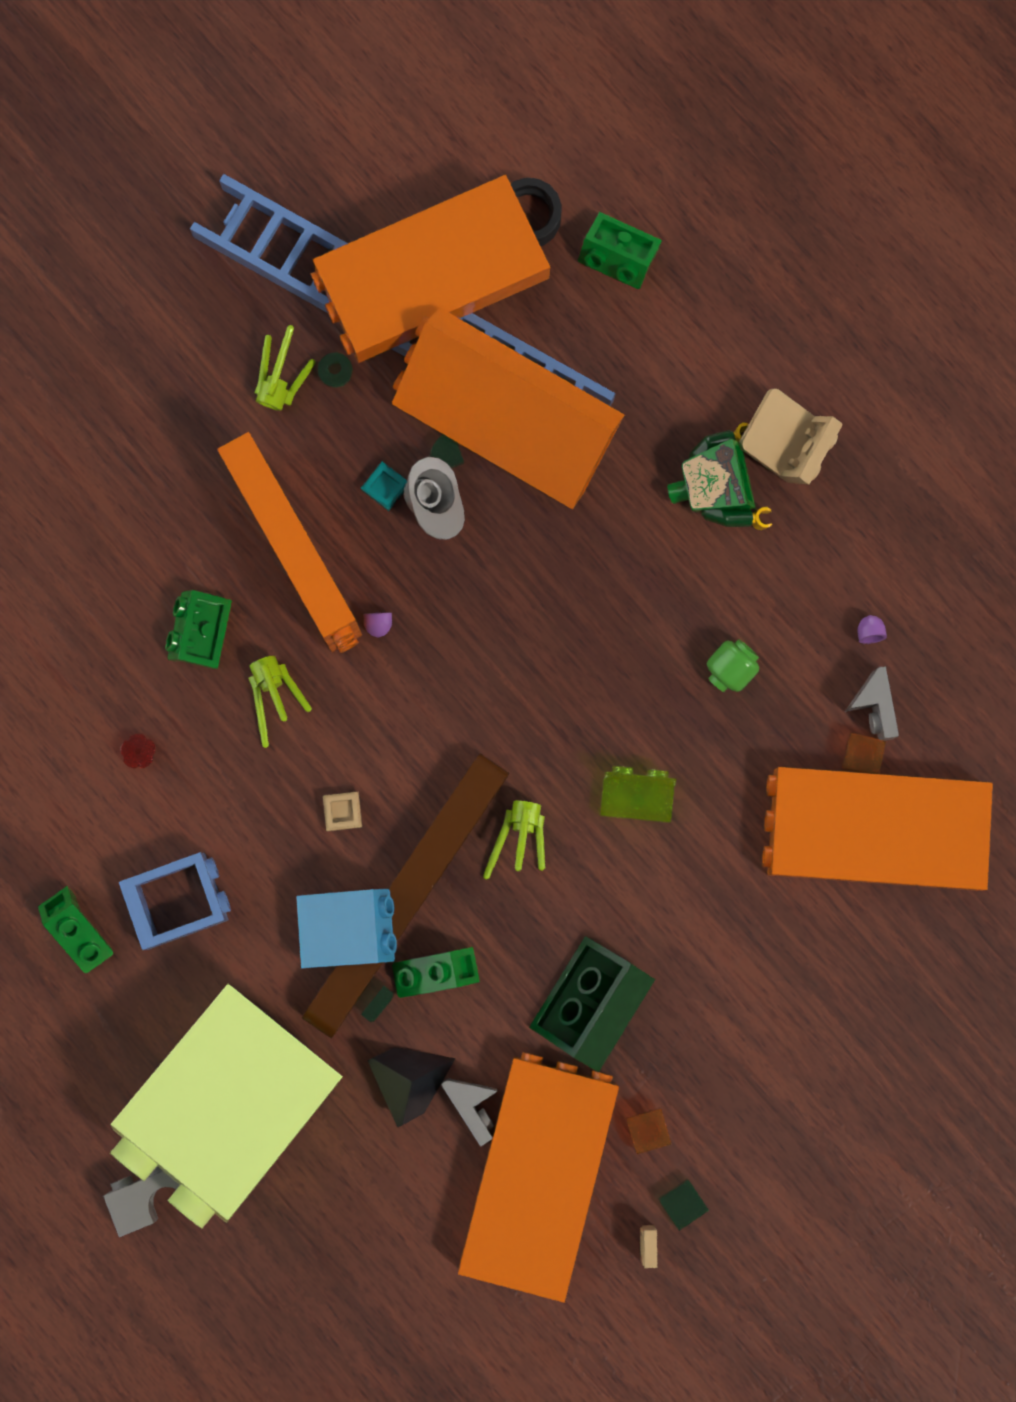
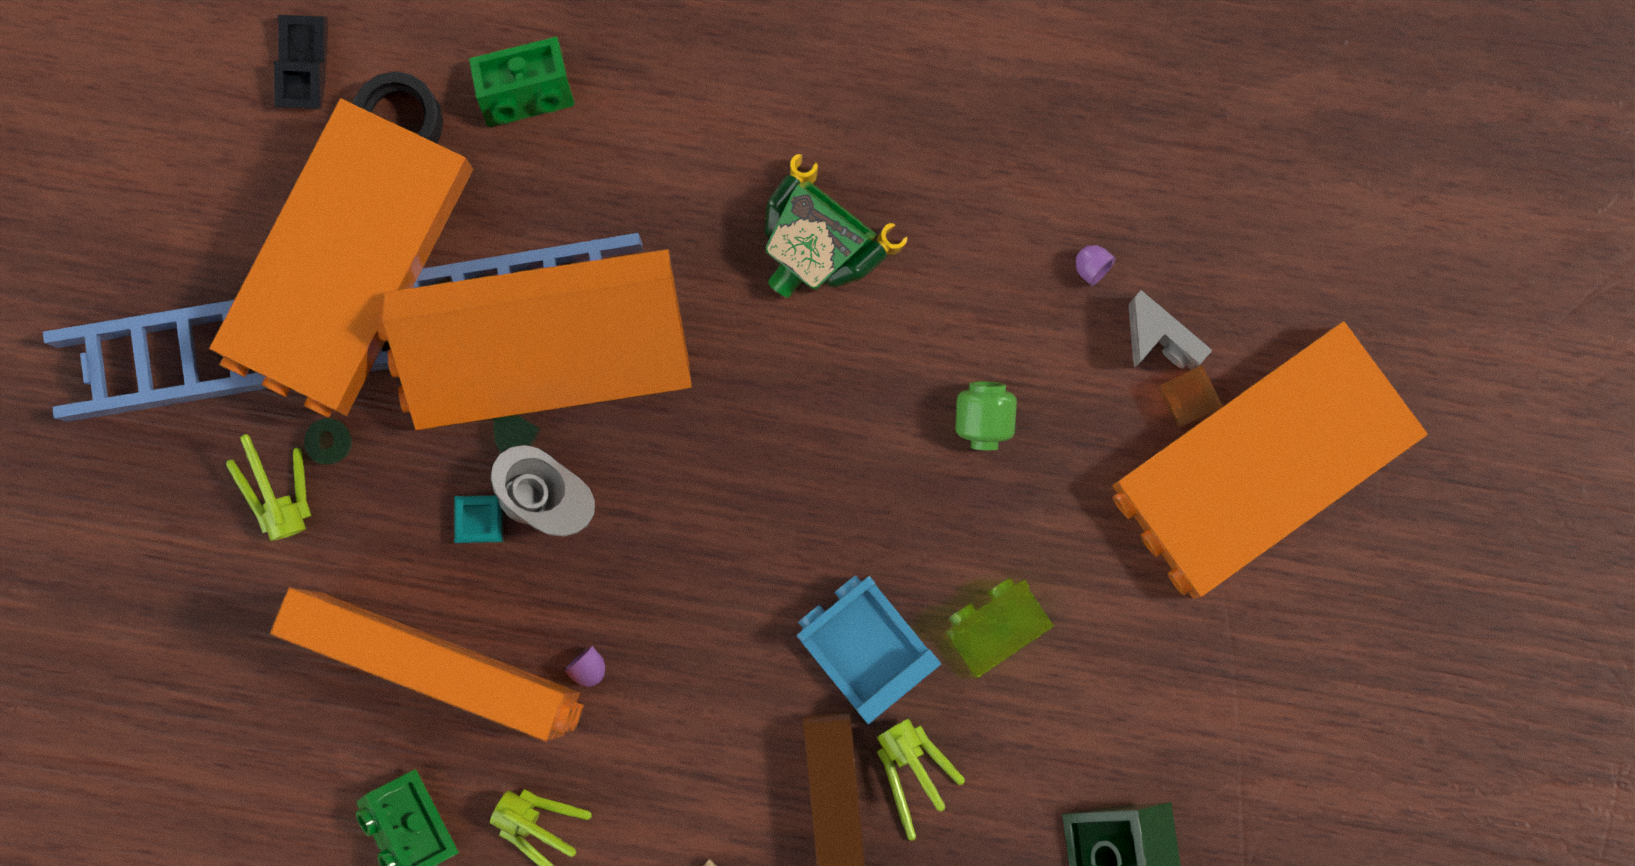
camera: 35 degrees left, 0 degrees up
(500, 135) = (302, 61): none -> black slope
(550, 744) = (866, 648): none -> dark azure panel
(789, 438) = (853, 135): tan bracket -> none

